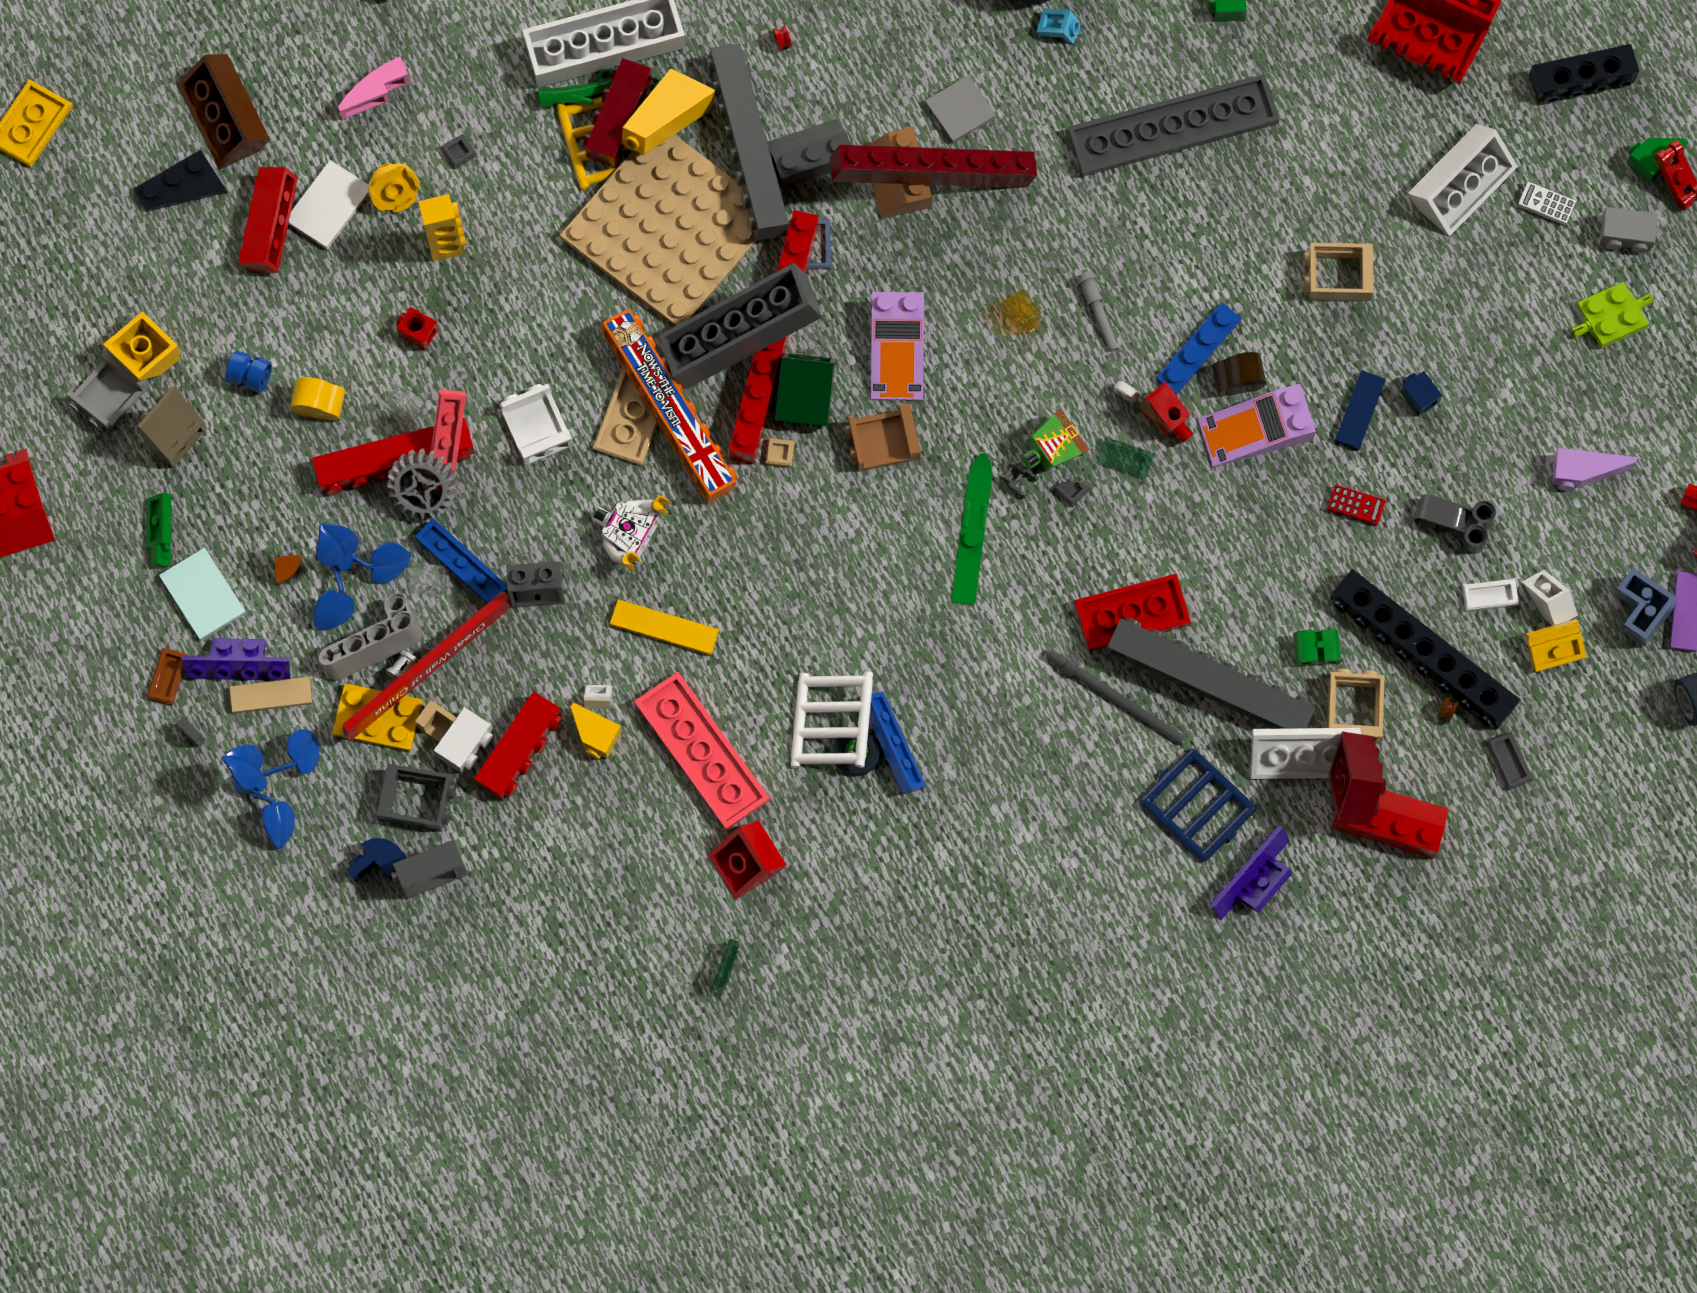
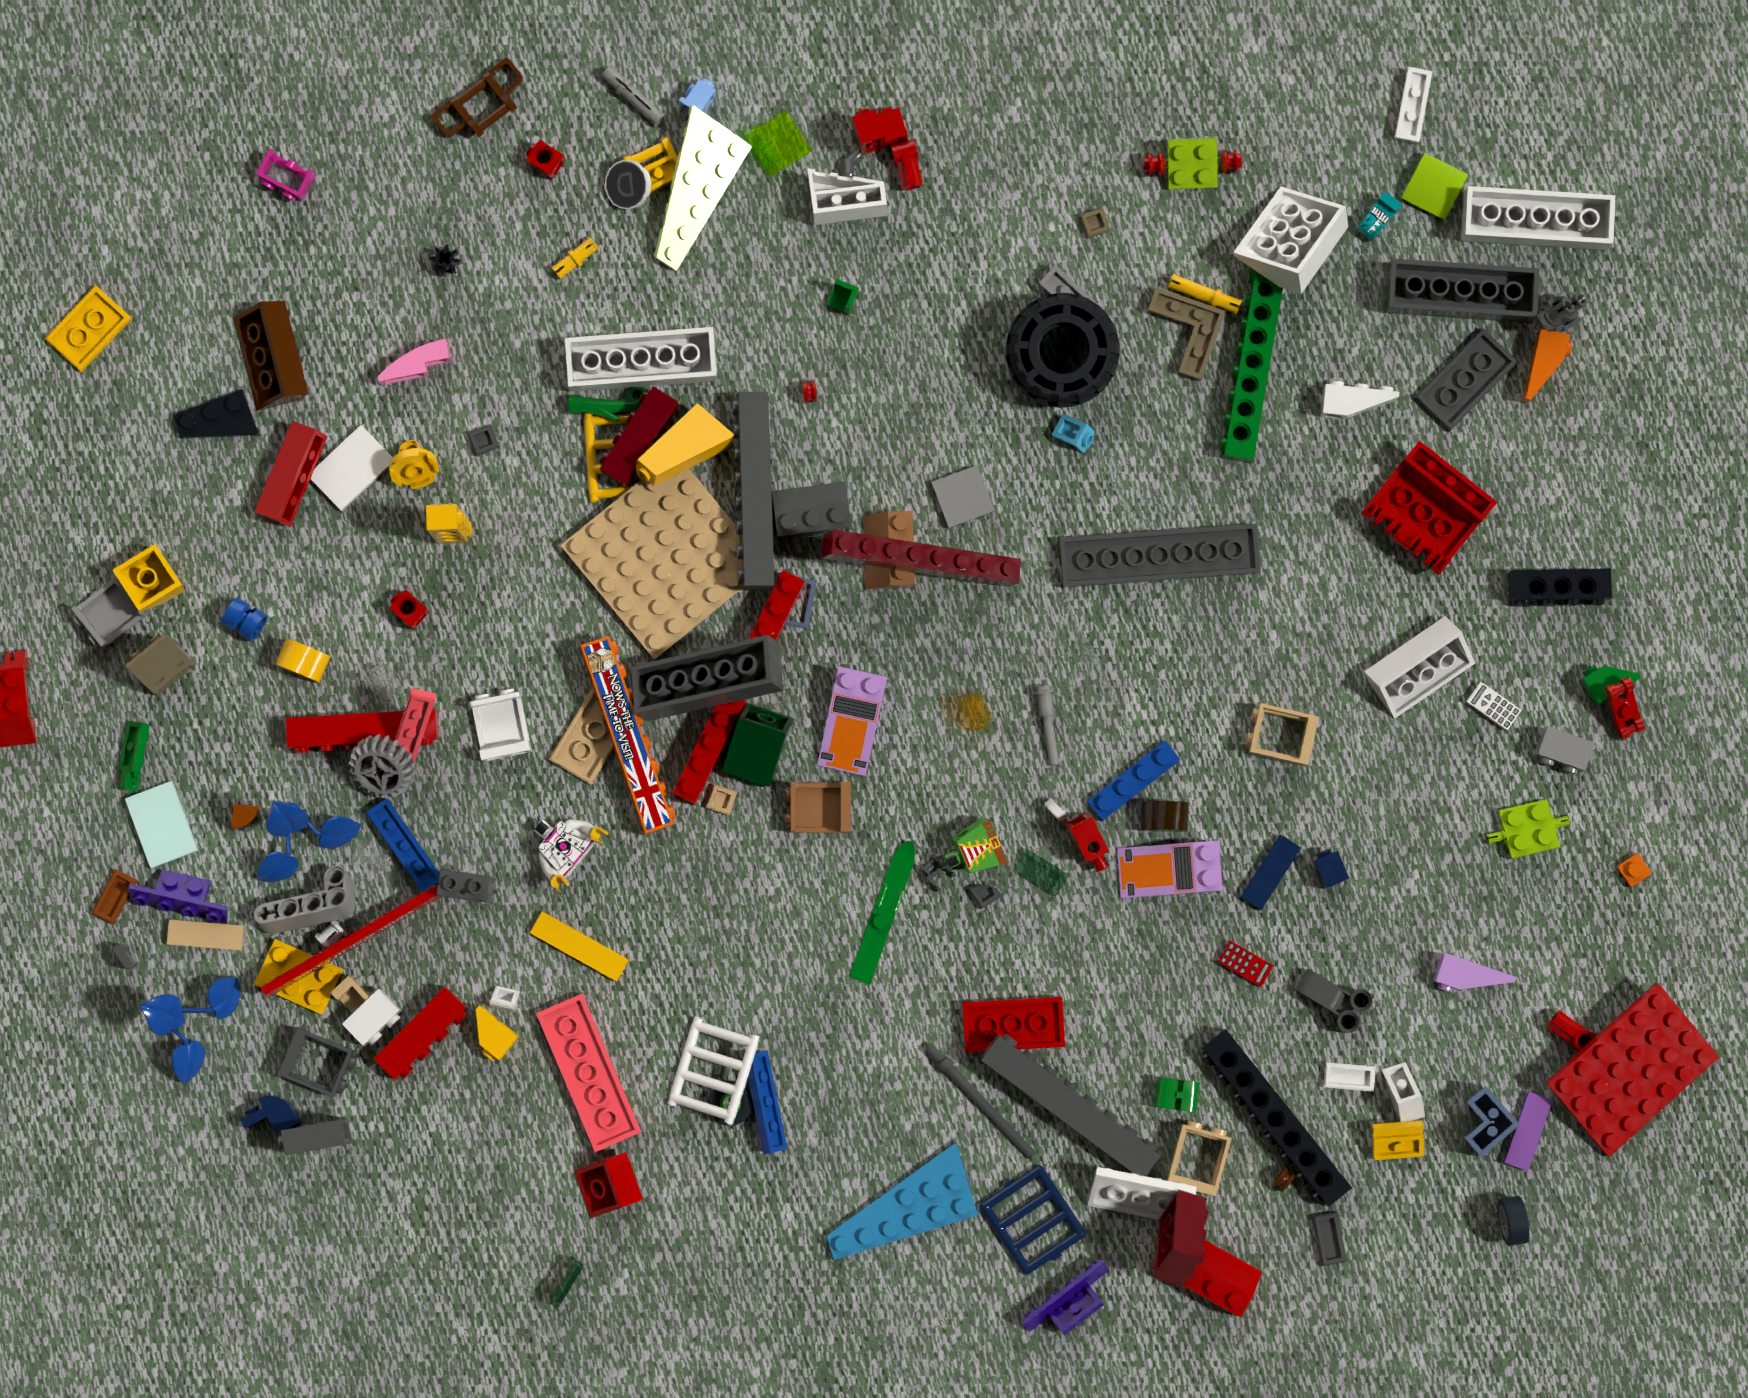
camera: 10 degrees right, 10 degrees up
(1078, 811) = (921, 1202): none -> dark azure wing

